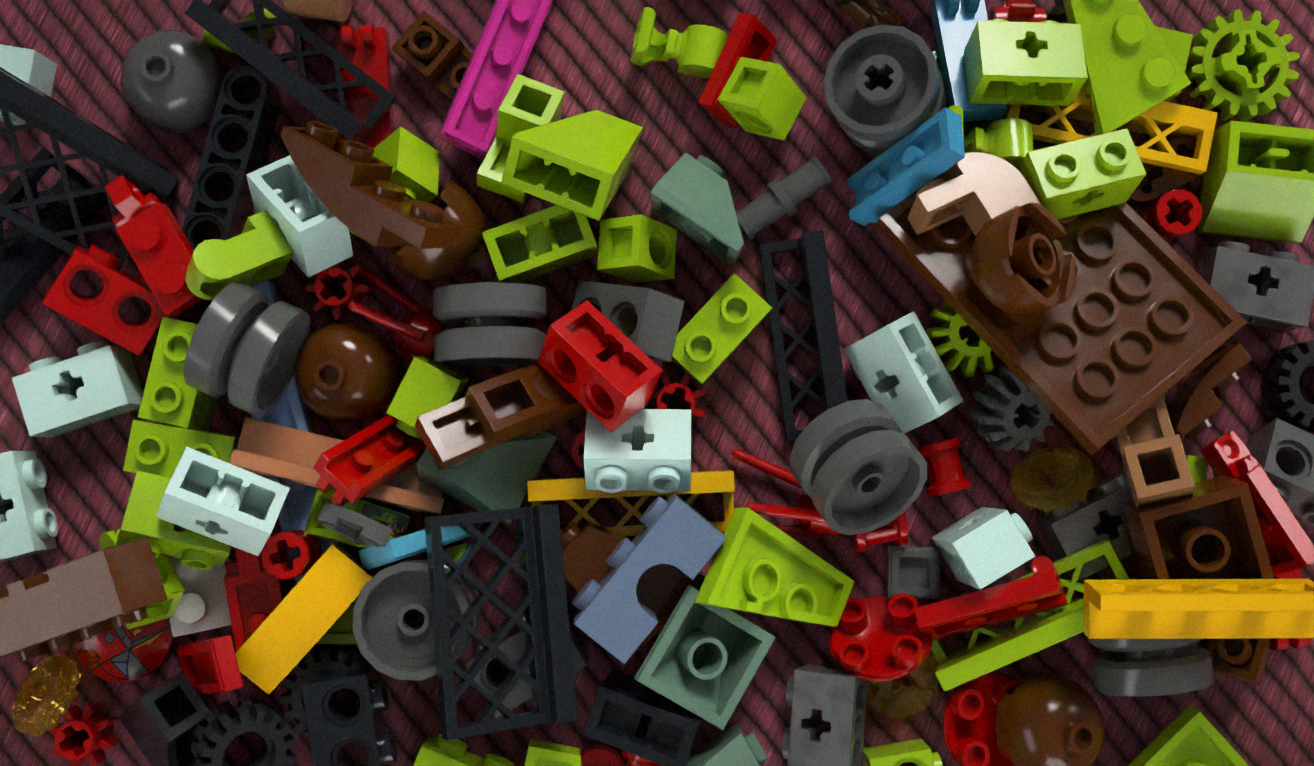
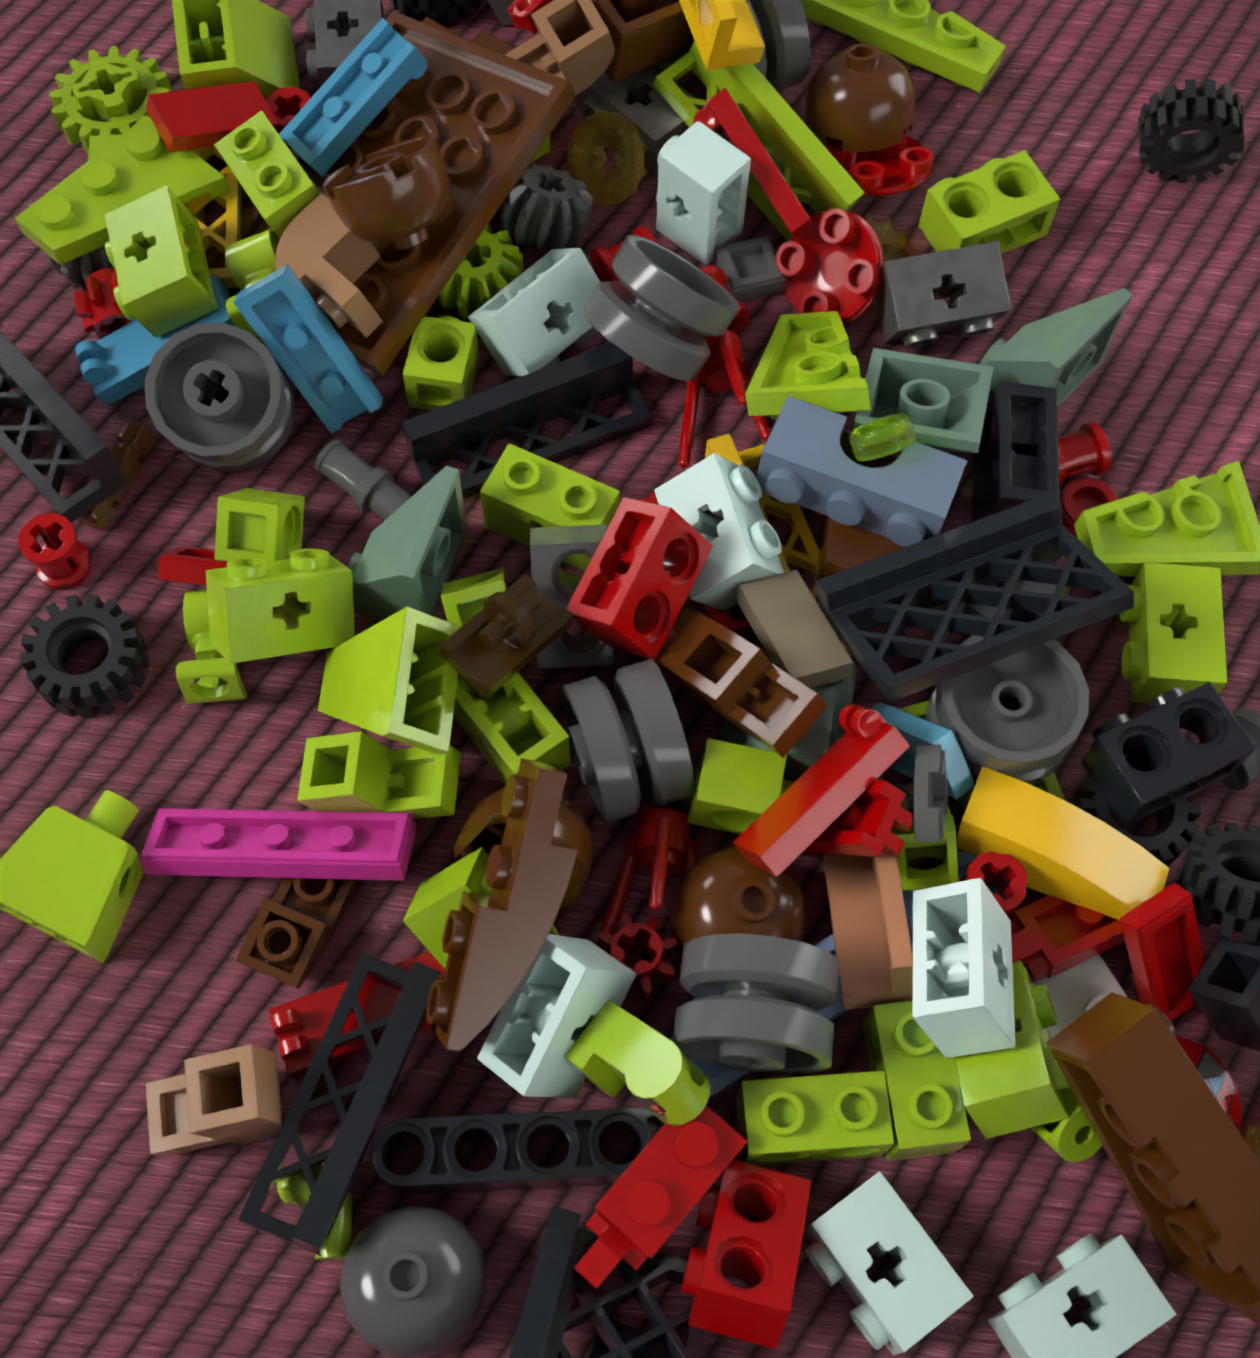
camera: 110 degrees left, 20 degrees down
(380, 445) = (823, 790): none -> red hinge
(530, 476) = (794, 629): none -> dark tan tile
(577, 248) = (504, 636): none -> dark brown hips
(660, 600) = (882, 437): none -> clear neon green tile
(677, 95) = (310, 618): none -> lime brick
(861, 286) = (440, 383): none -> lime brick
(1152, 262) = (353, 96): none -> dark azure hinge
(1173, 138) = (205, 114): none -> red tile

